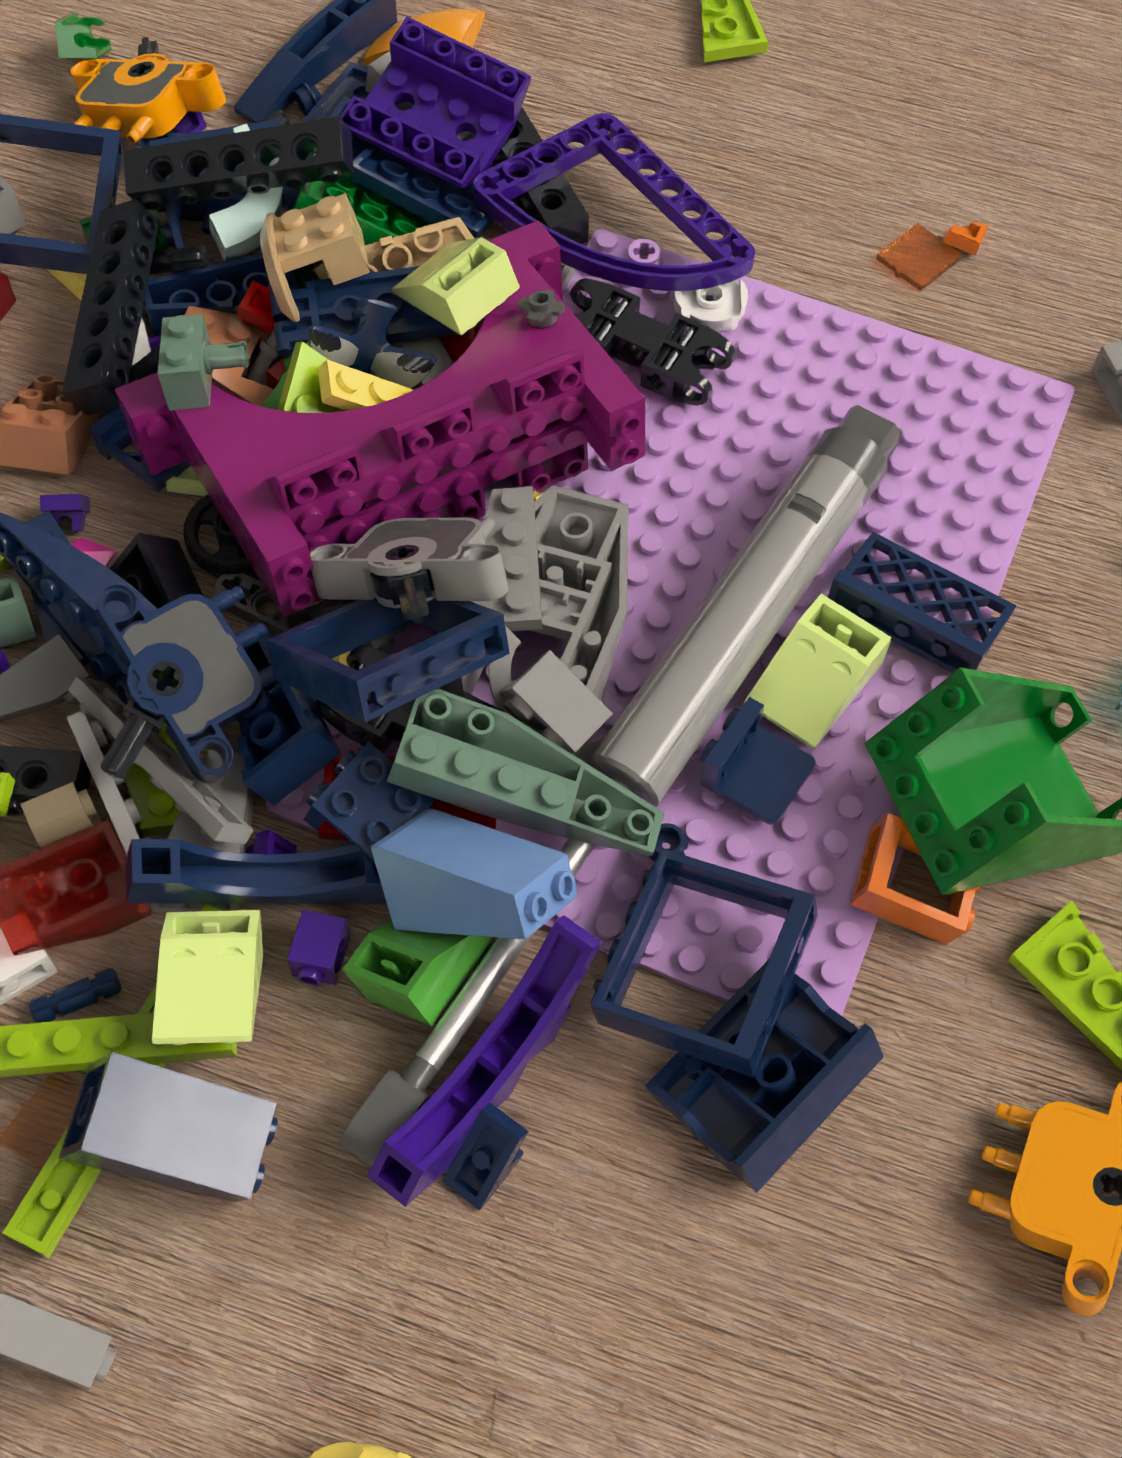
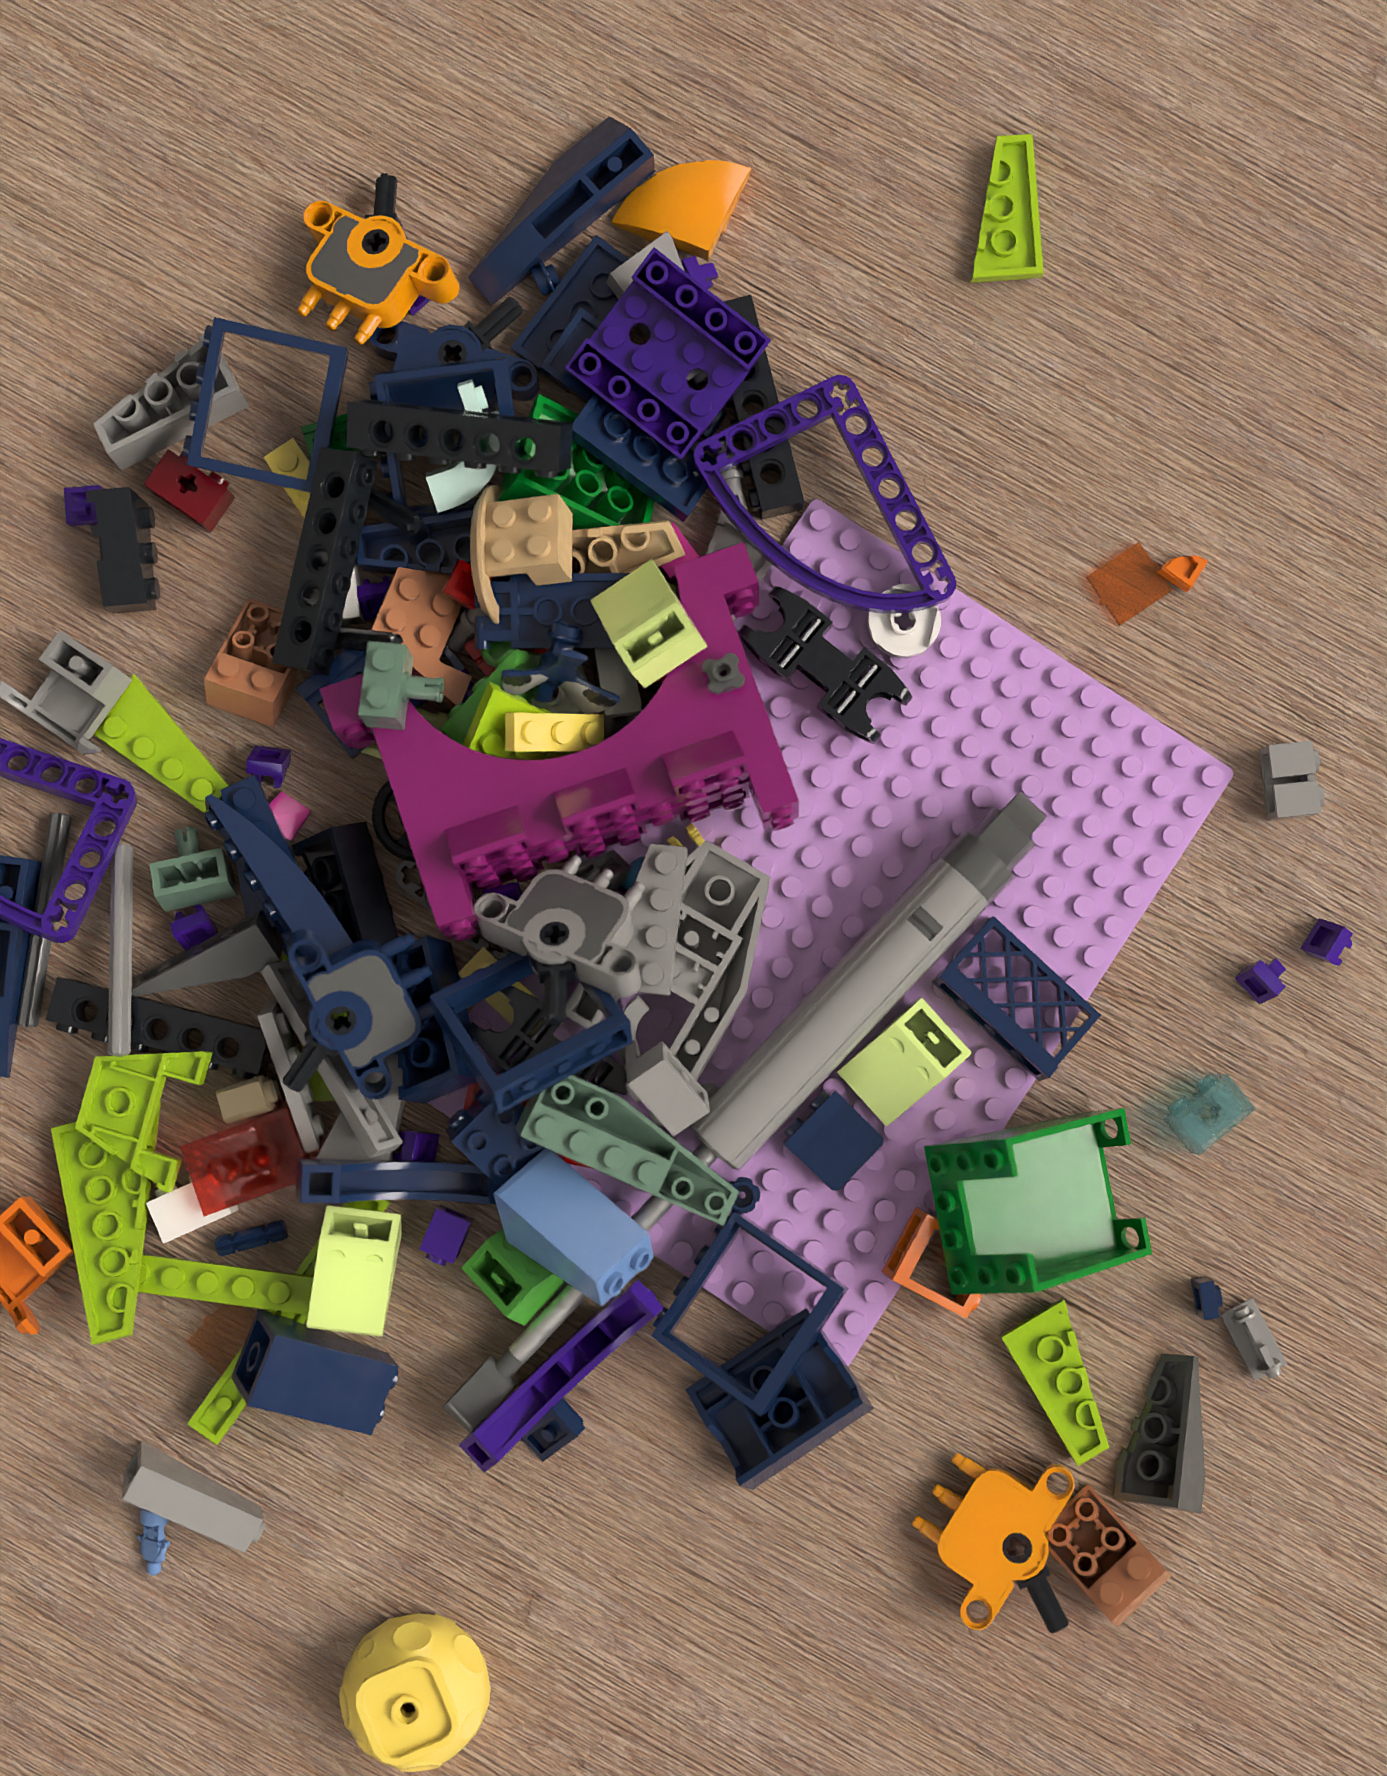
camera: 15 degrees right, 25 degrees up
(76, 39) = (317, 167): green hinge -> none
(644, 247) = (842, 547): lavender bush -> none

